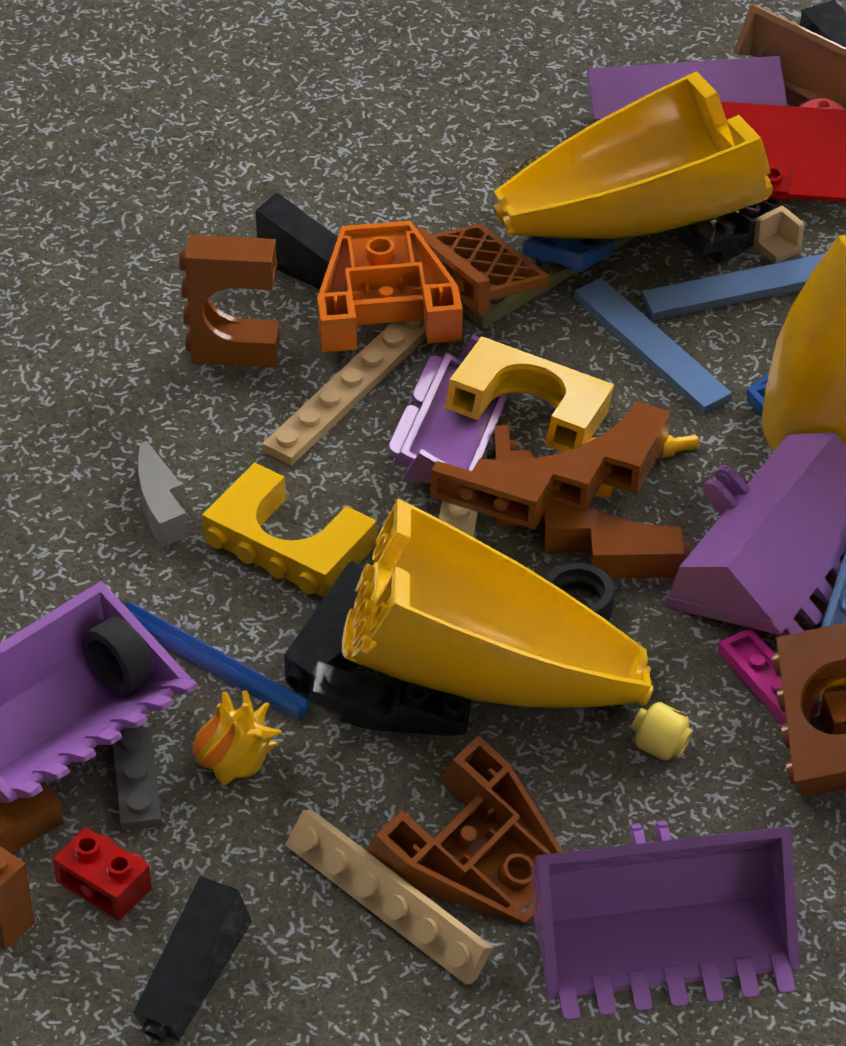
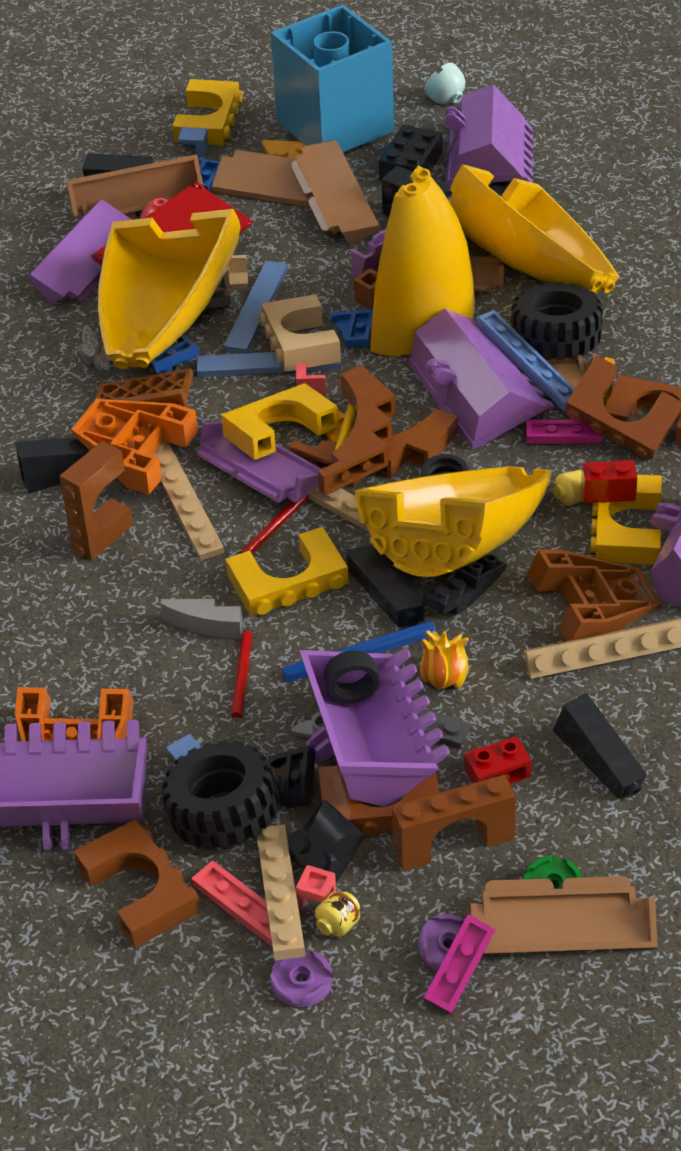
camera: 55 degrees left, 0 degrees up
(101, 574) = (241, 675): none -> red bar
(370, 485) = (290, 509): none -> red bar
(641, 386) = (316, 382): none -> coral panel
(666, 750) = (609, 481): none -> red brick
(680, 777) = (623, 543): none -> yellow arch
(724, 312) = (296, 314): none -> tan arch

